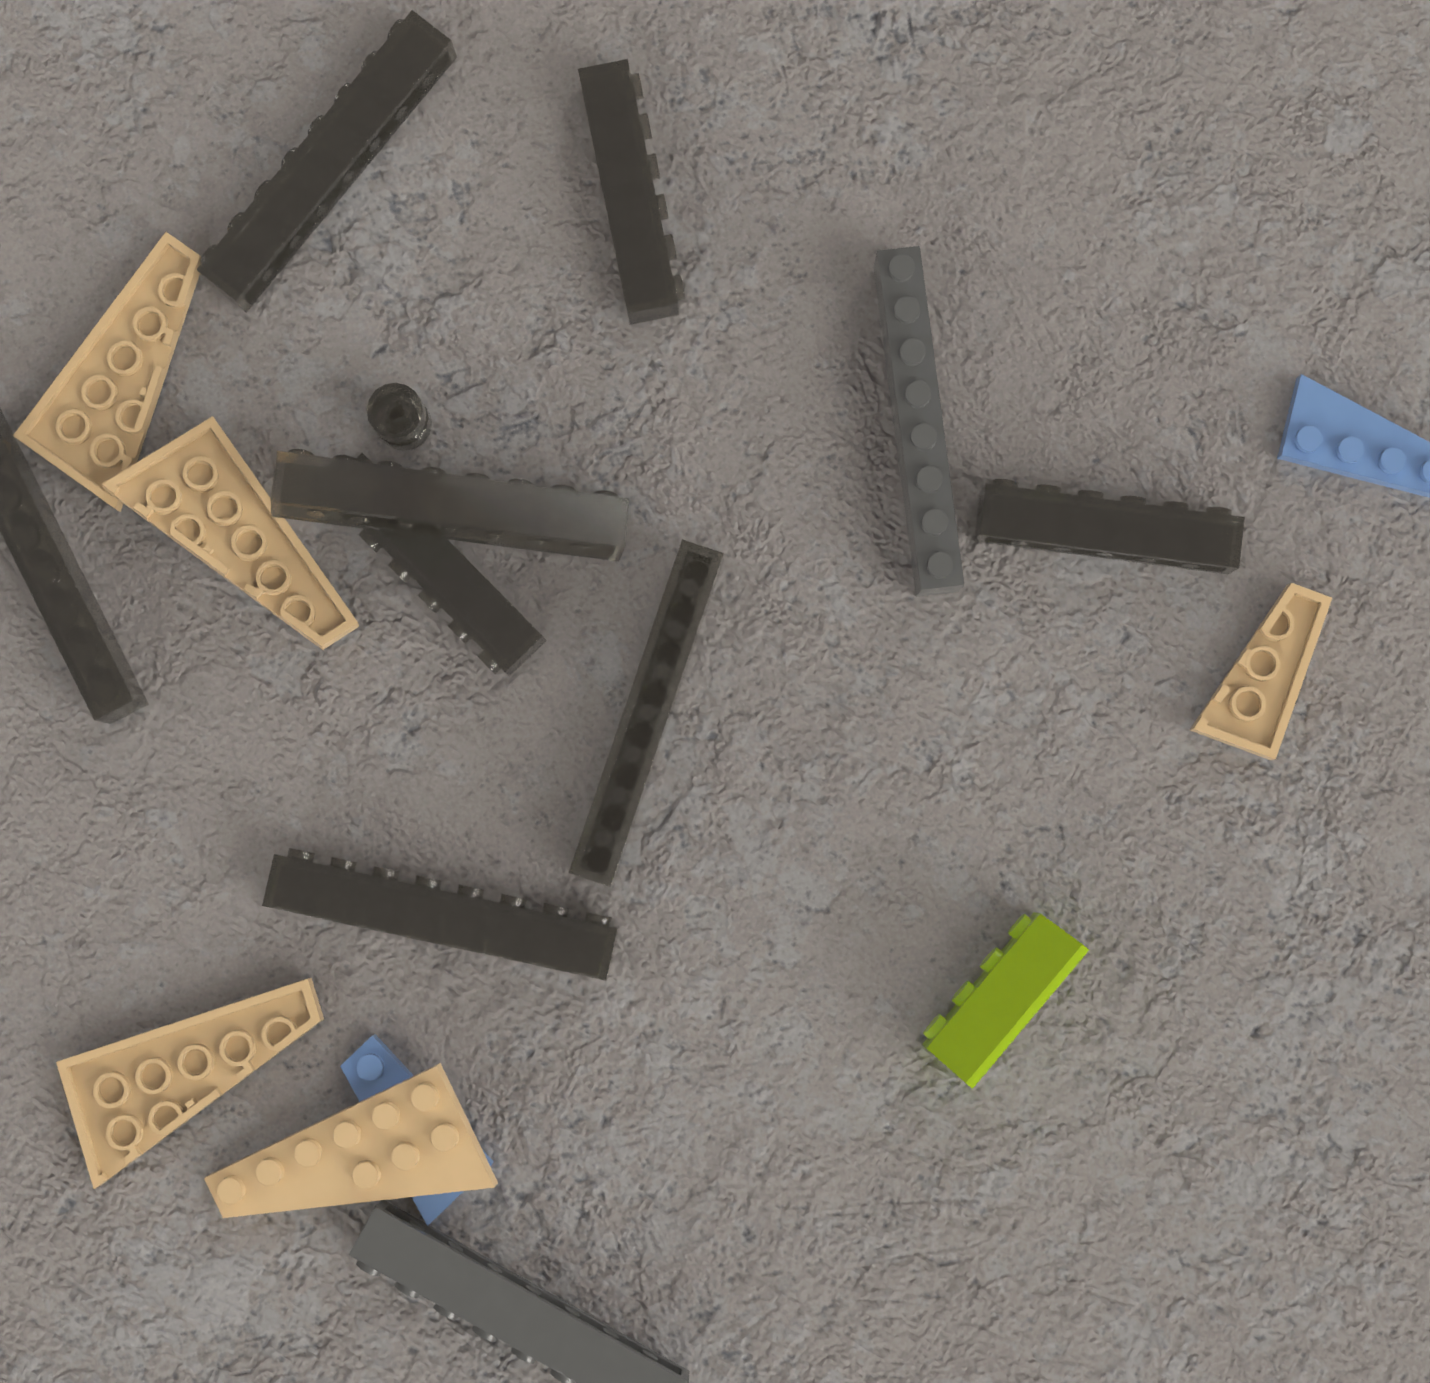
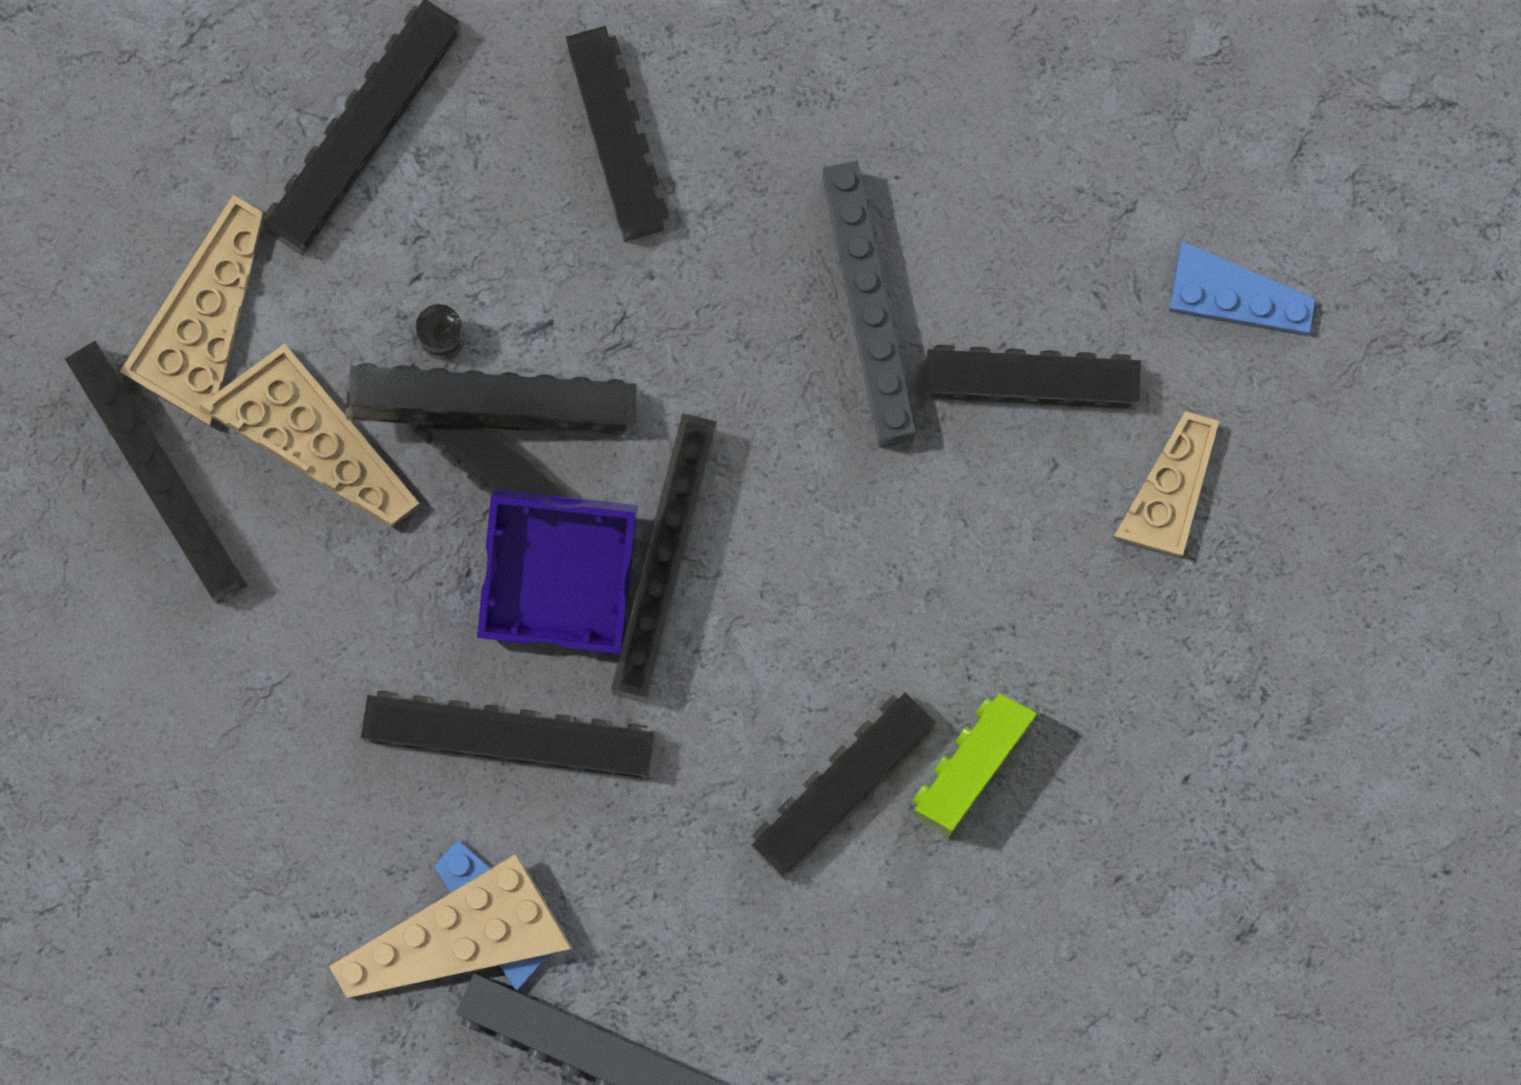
camera: 10 degrees left, 5 degrees down
(156, 1081) = (283, 890): tan wing -> none
(514, 721) = (557, 571): none -> dark purple tile
(841, 1007) = (842, 785): none -> clear smoke brick

